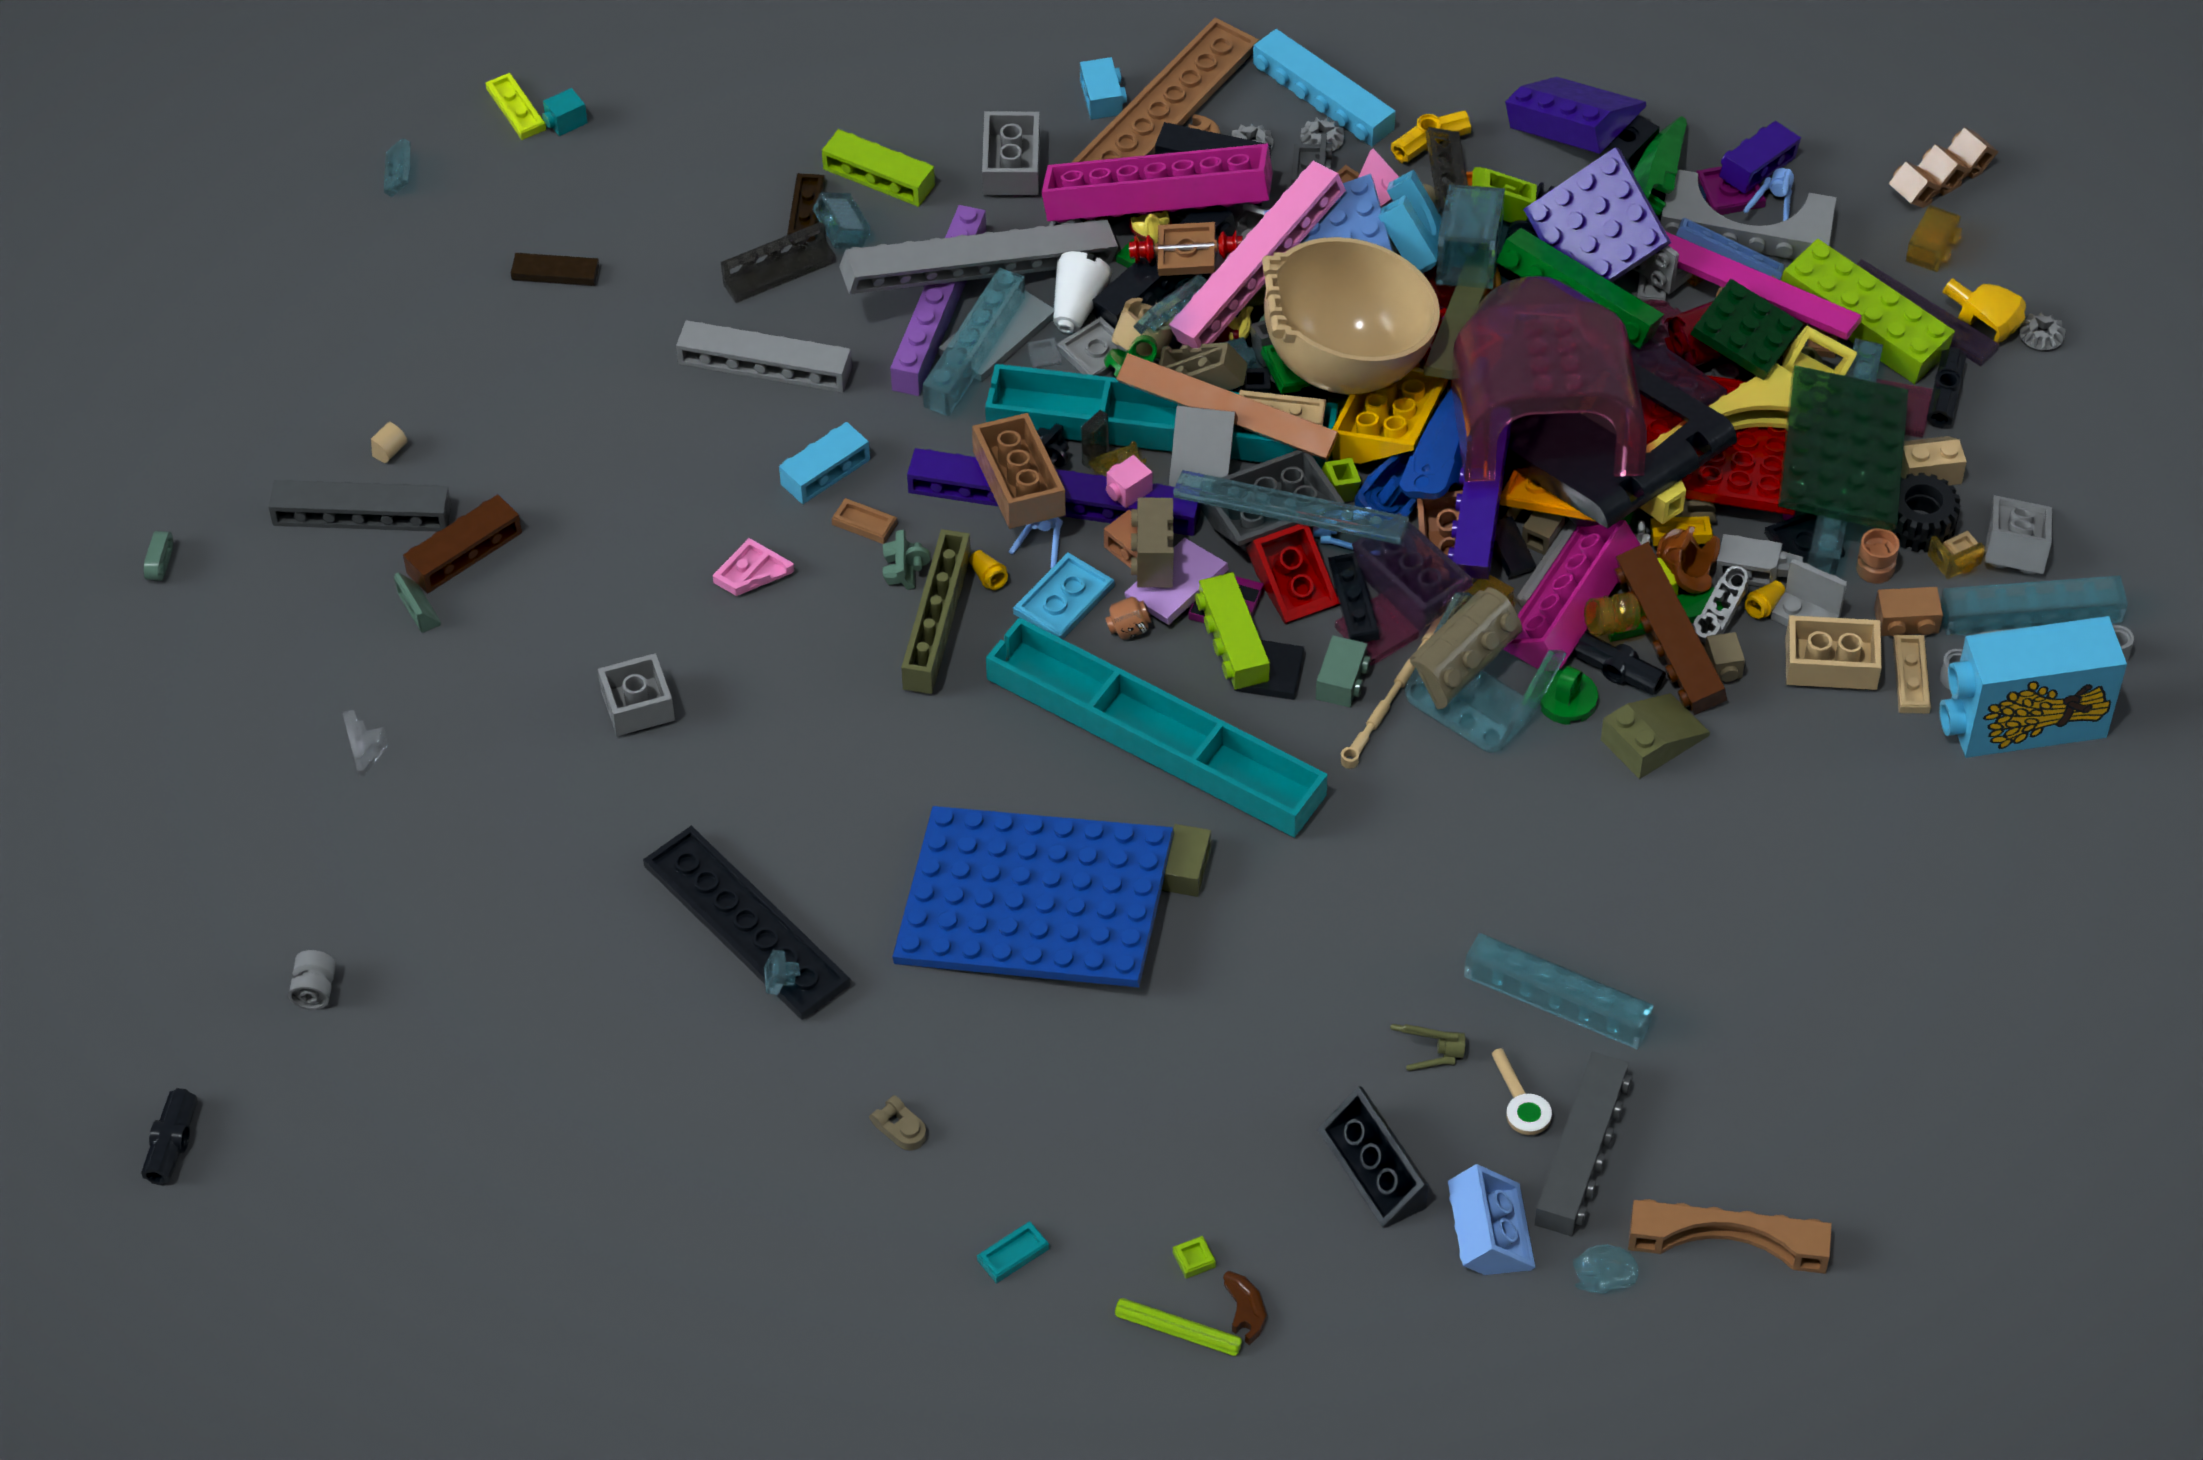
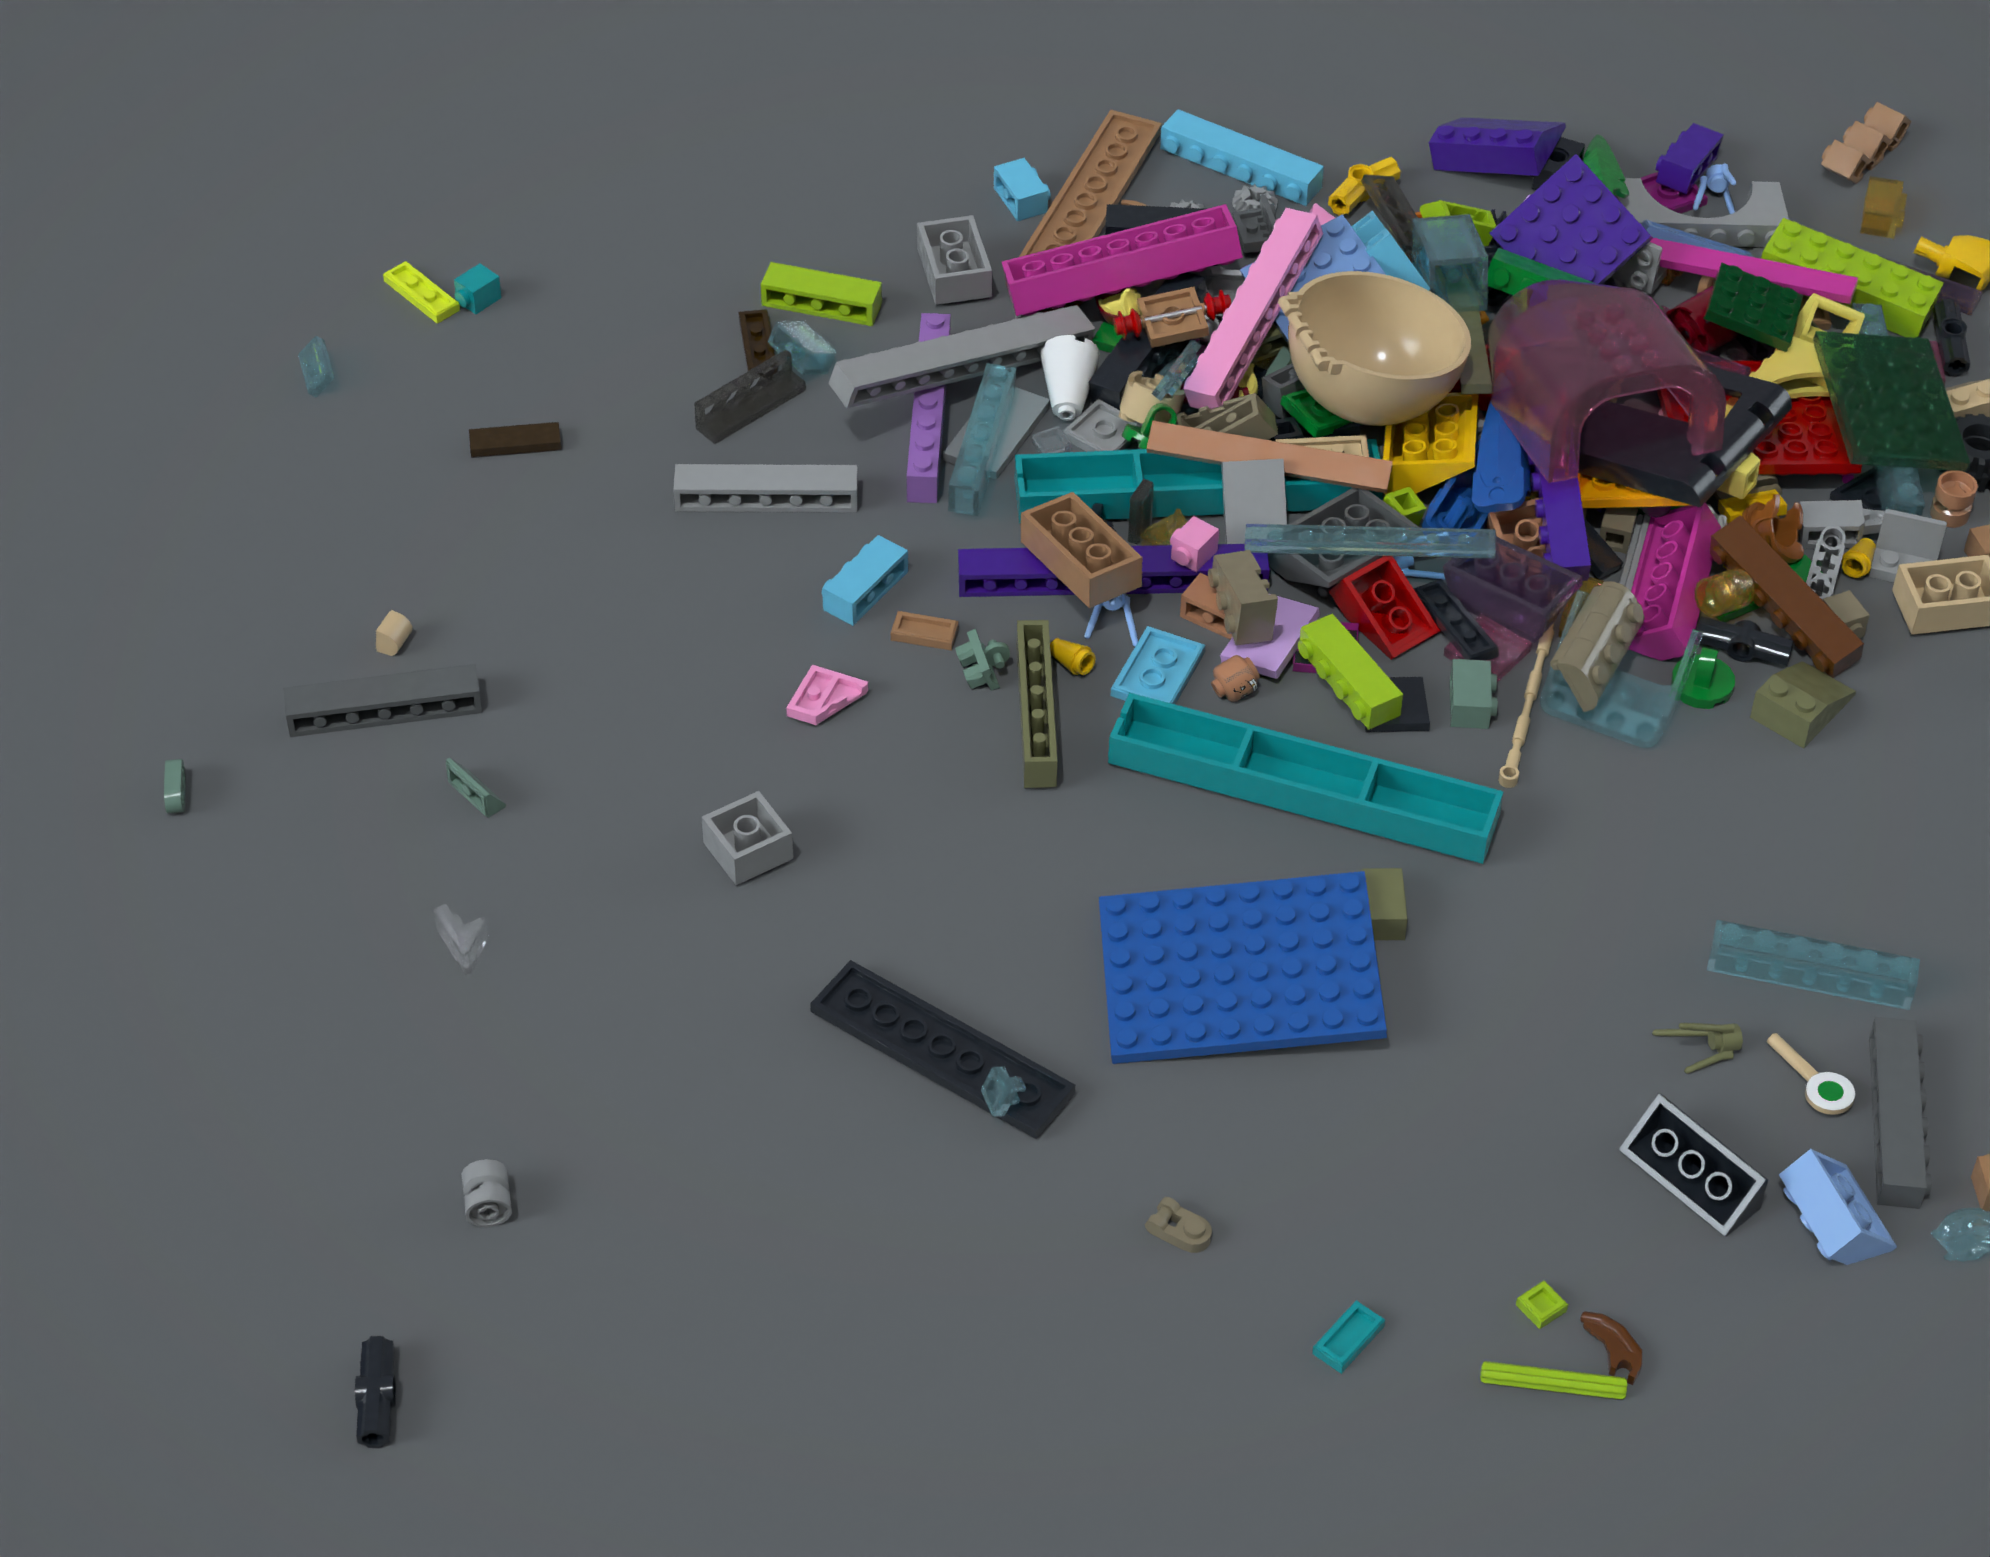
camera: 15 degrees left, 5 degrees down
(462, 543) = (506, 720): reddish brown brick -> none

